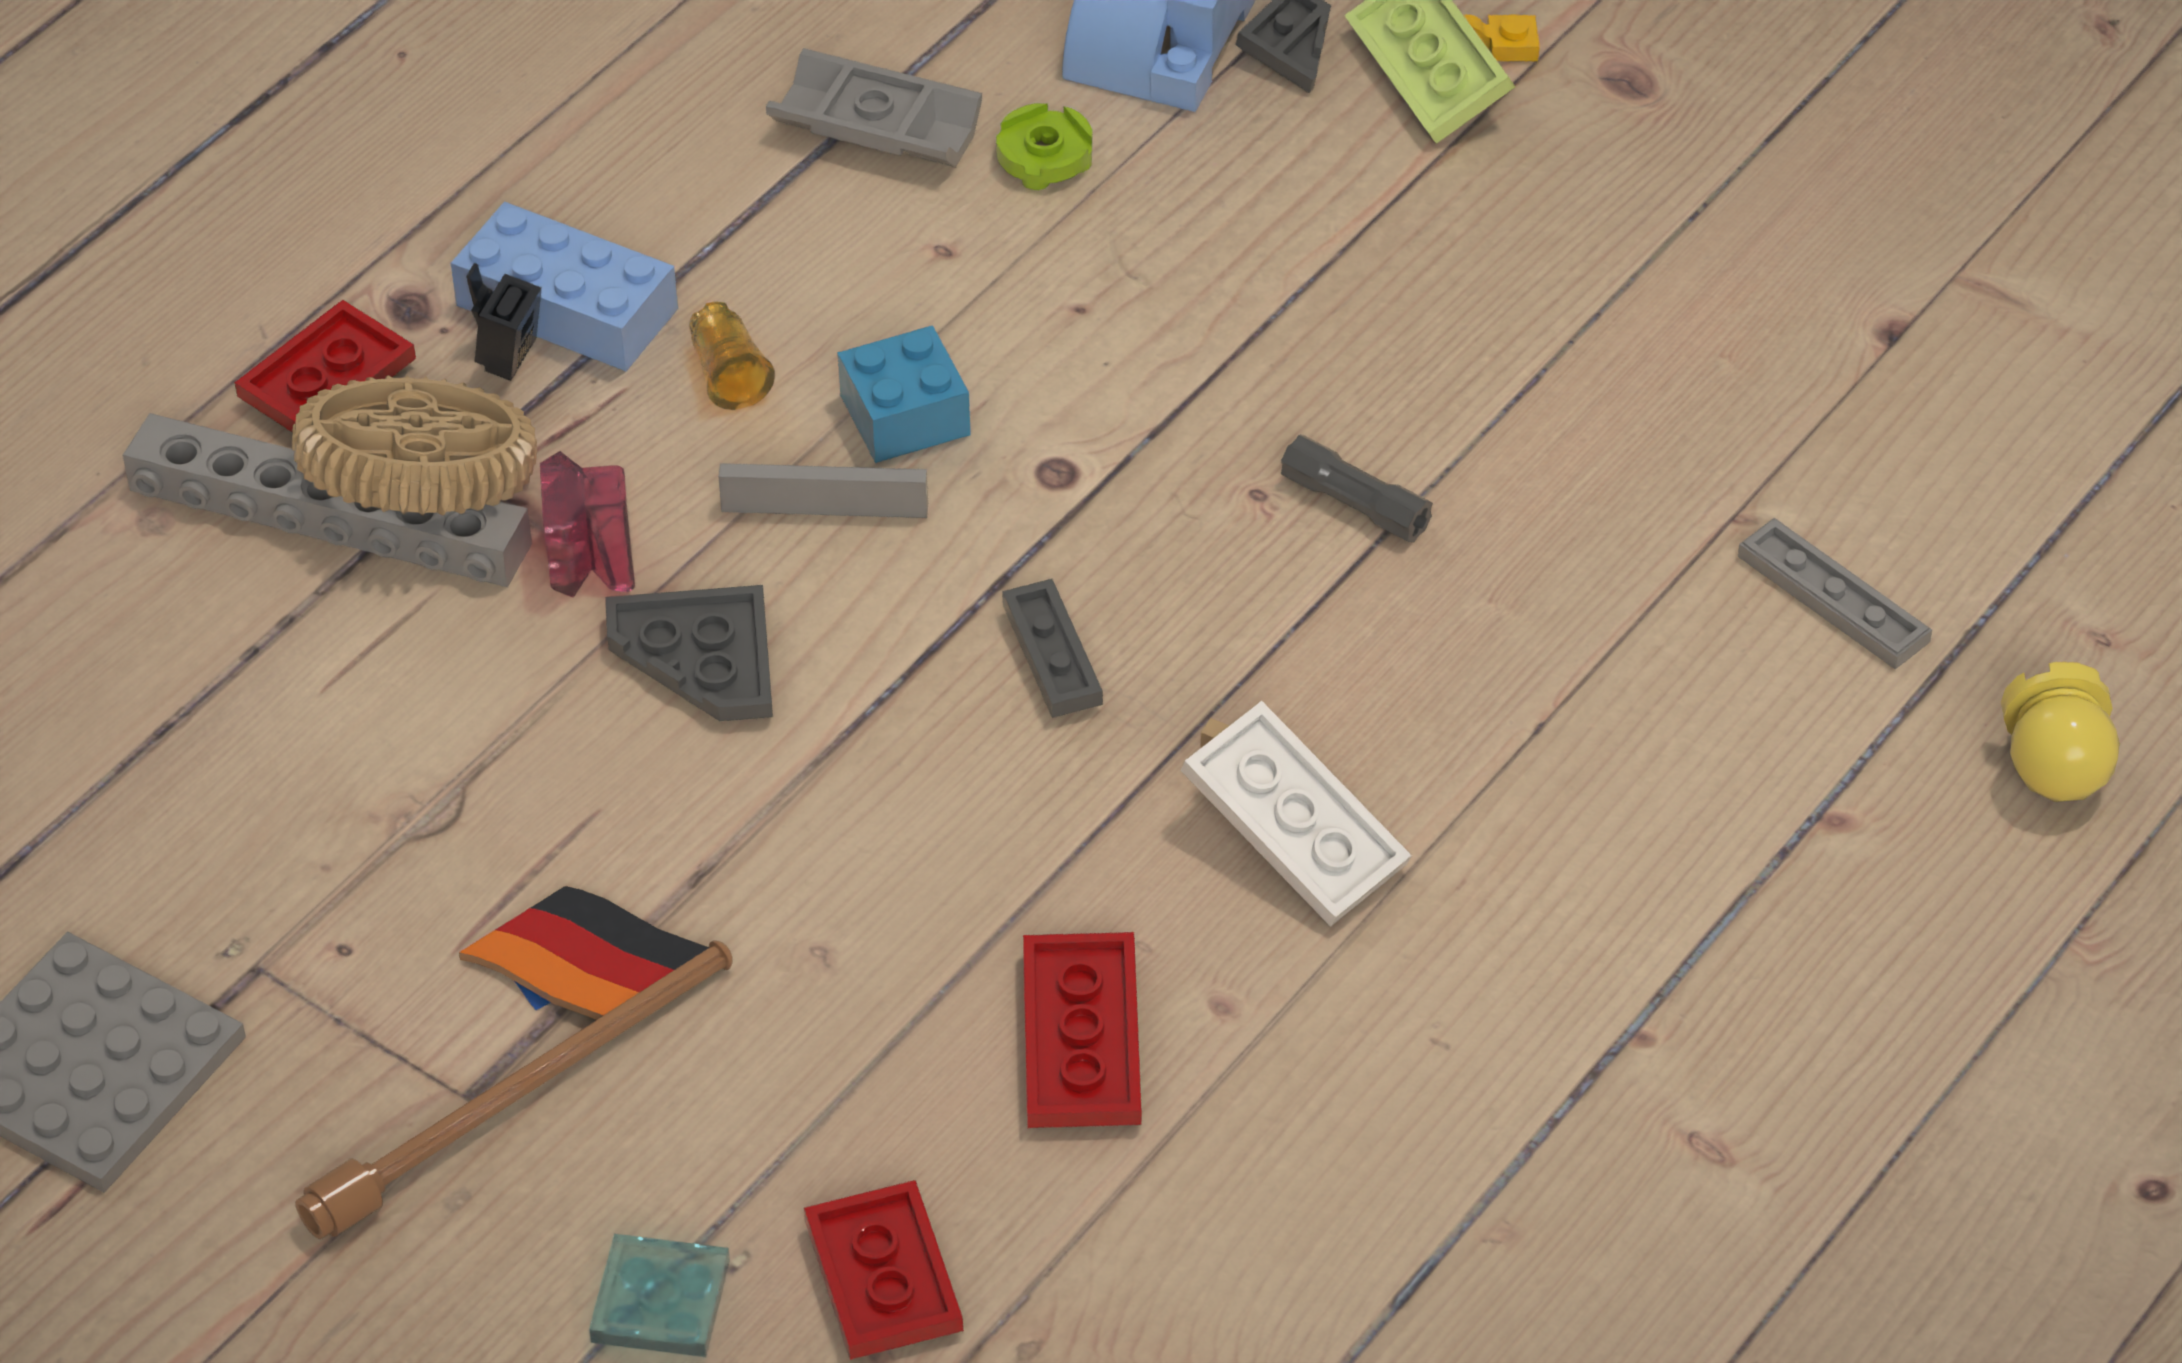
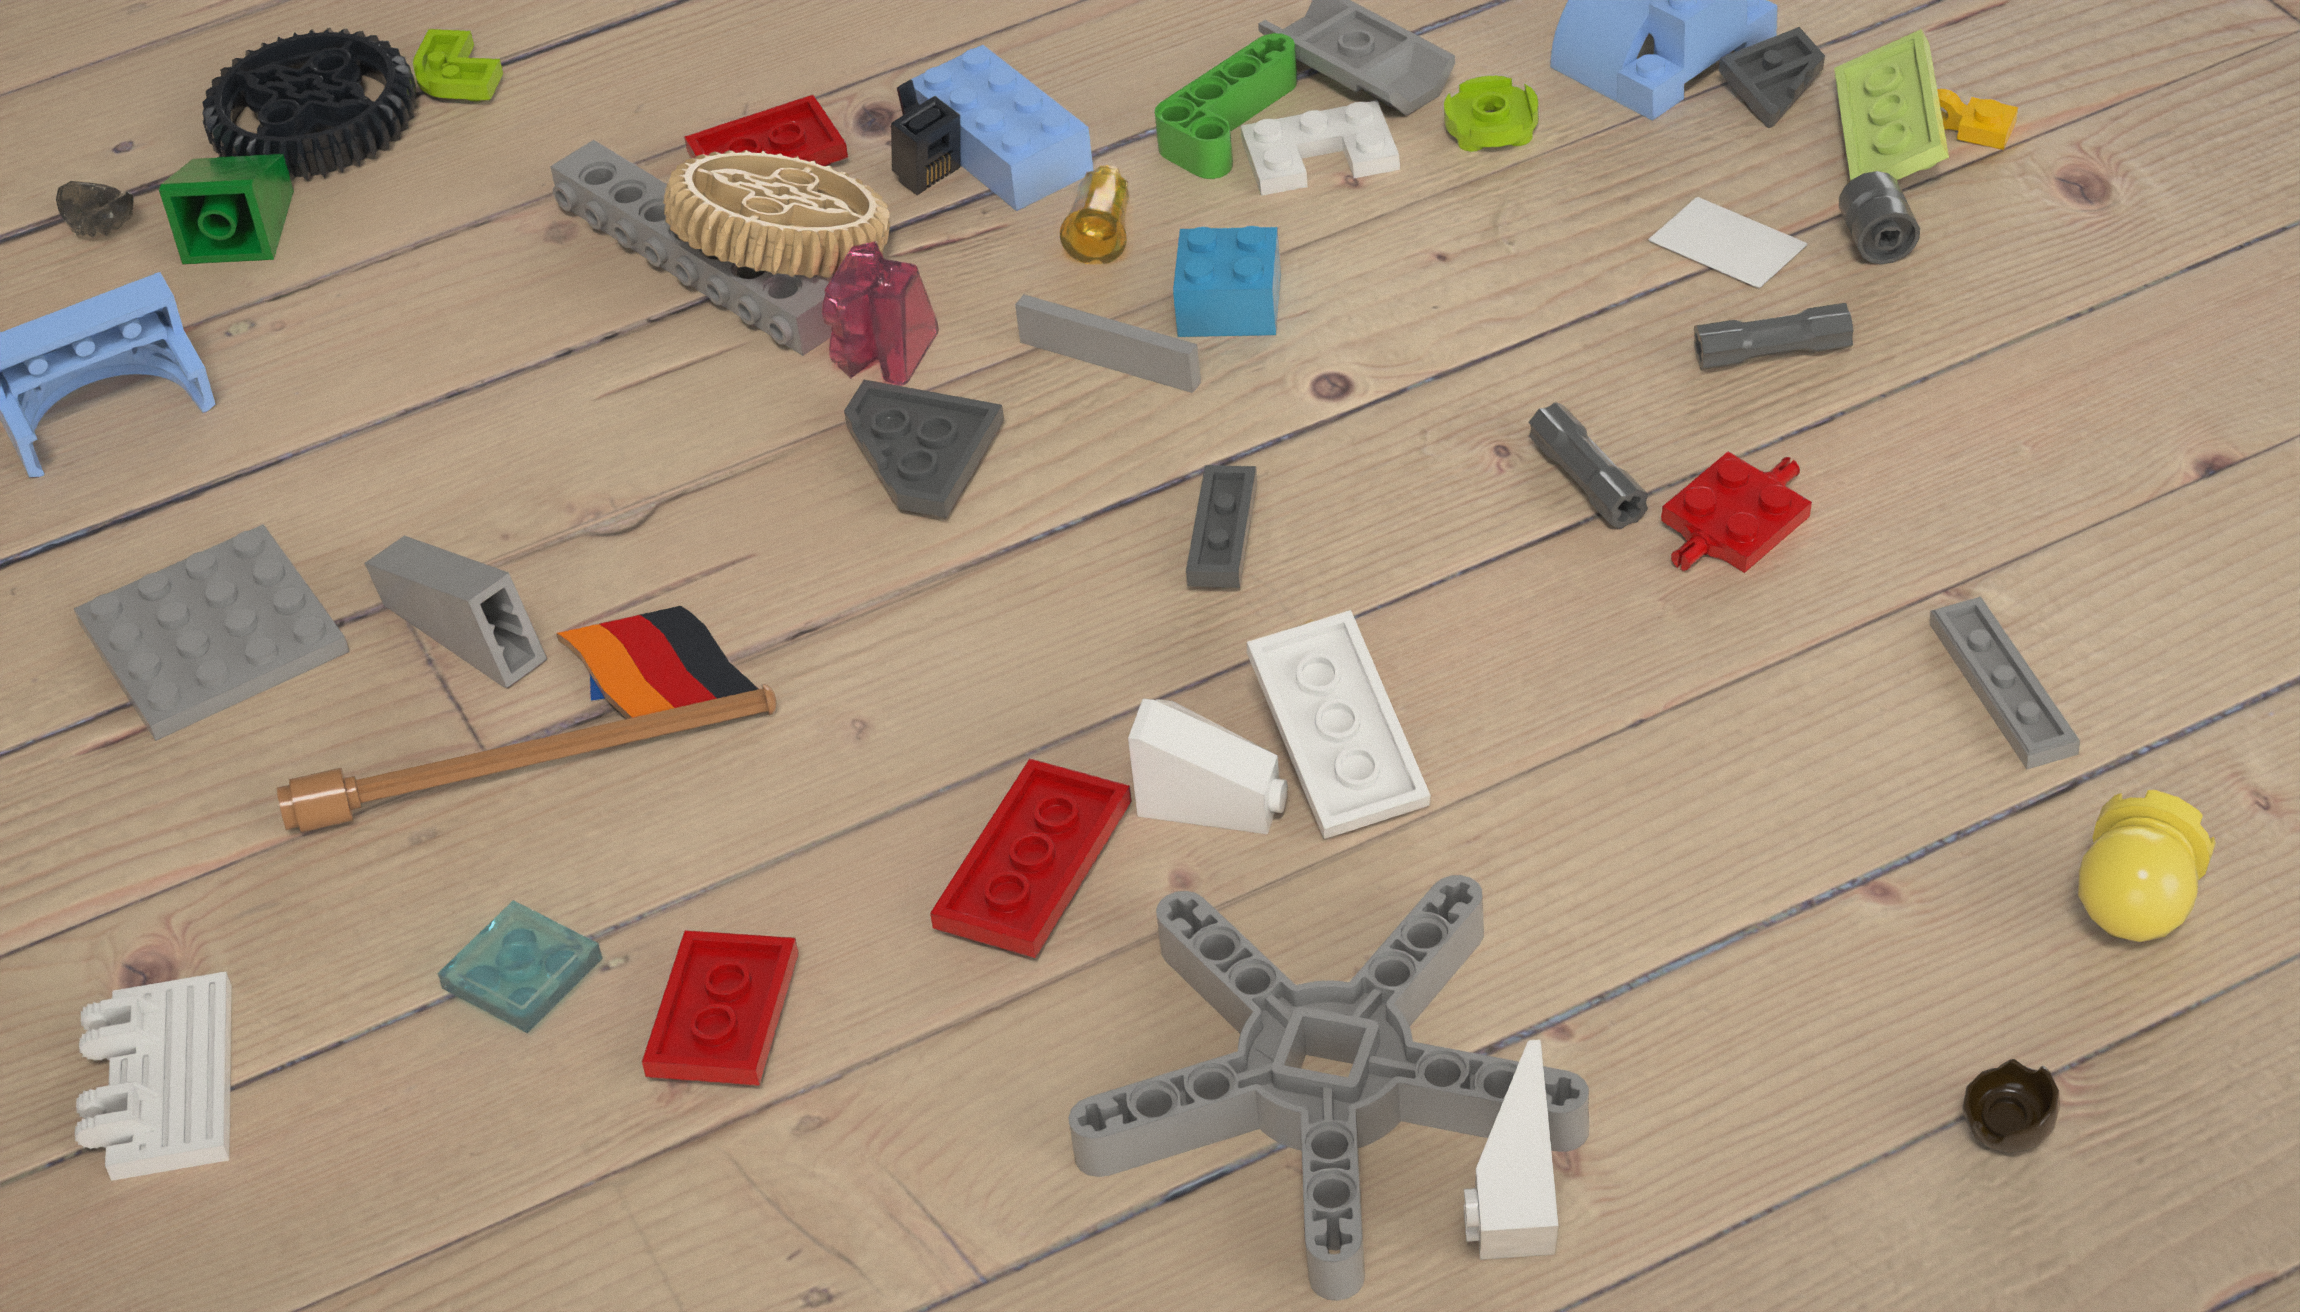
camera: 30 degrees right, 5 degrees down
(348, 954) = (460, 606): none -> light grey slope
(761, 225) = (1198, 118): none -> bright green beam
(857, 228) = (1279, 144): none -> white plate
(1196, 898) = (1201, 771): none -> white slope
(1341, 222) = (1728, 242): none -> white sticker
(1420, 324) = (1736, 341): none -> dark grey axle
(1476, 1184) = (1313, 1110): none -> light grey beam
(1479, 164) = (1879, 217): none -> dark grey wheel
(1513, 497) = (1735, 512): none -> red plate
(1718, 1172) = (1514, 1190): none -> white slope
(2066, 980) = (2012, 1106): none -> dark brown hair

